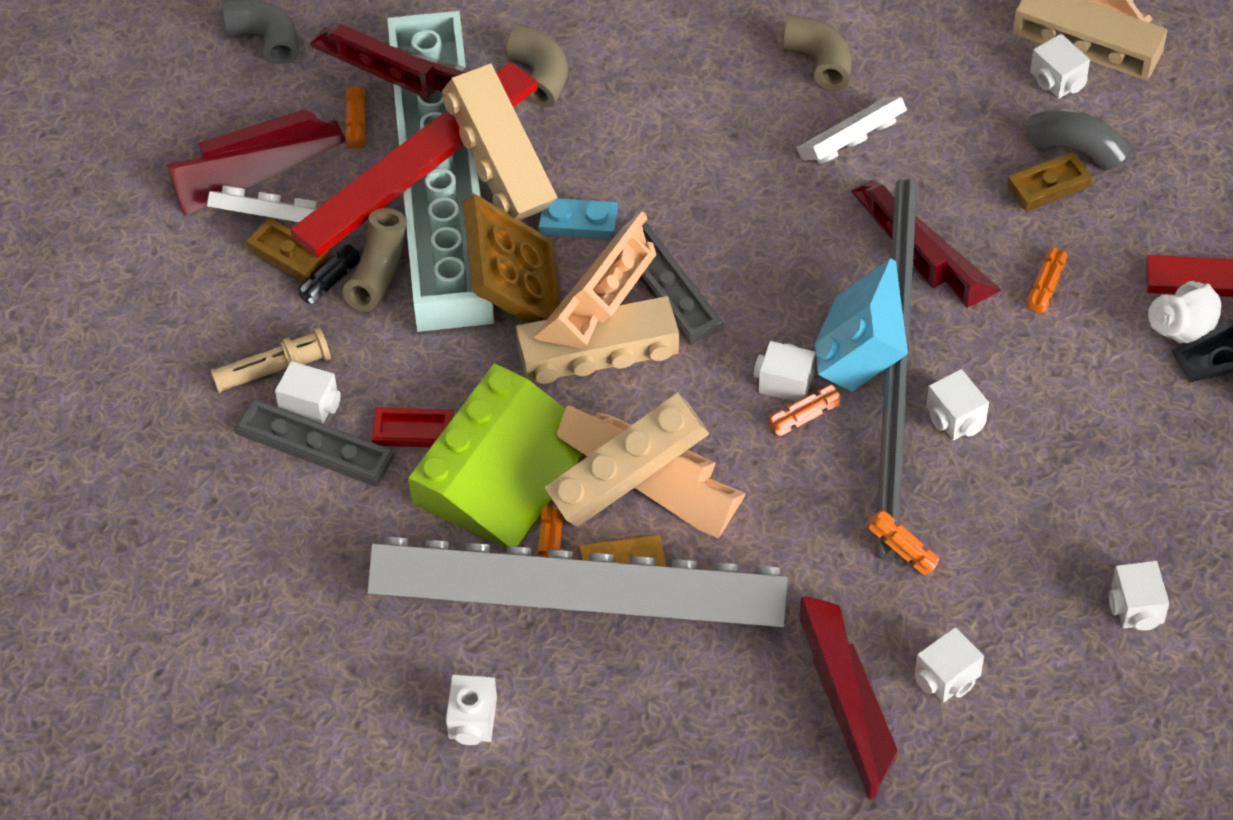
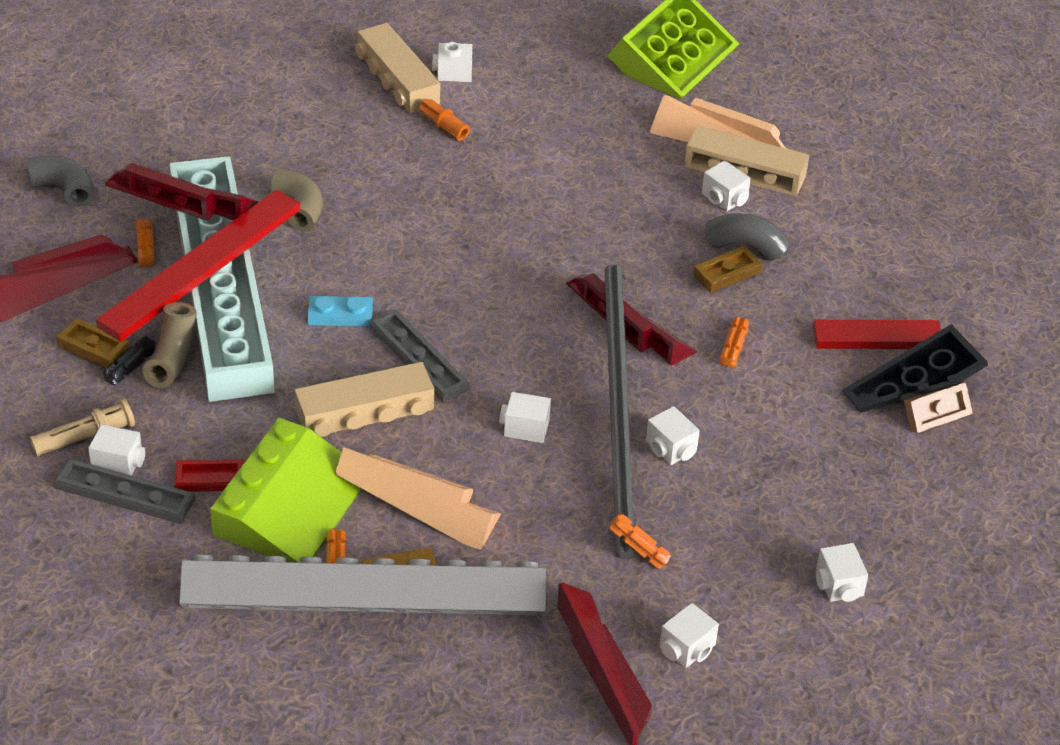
camera: 10 degrees left, 10 degrees down
(265, 205) = (72, 308): white plate -> none
(471, 709) = (277, 693): white brick -> none
(498, 143) = (271, 249): tan brick -> none
(510, 262) = (286, 339): pearl gold plate -> none
(600, 288) = (364, 358): light nougat wedge -> none
(627, 460) = (399, 485): tan brick -> none
(804, 410) = (544, 446): axle -> none
(824, 45) = (533, 177): dark tan cylinder -> none
(852, 130) = (562, 238): white plate -> none
(863, 330) = (589, 381): medium azure slope -> none
(1186, 314) = (851, 358): white hair -> none

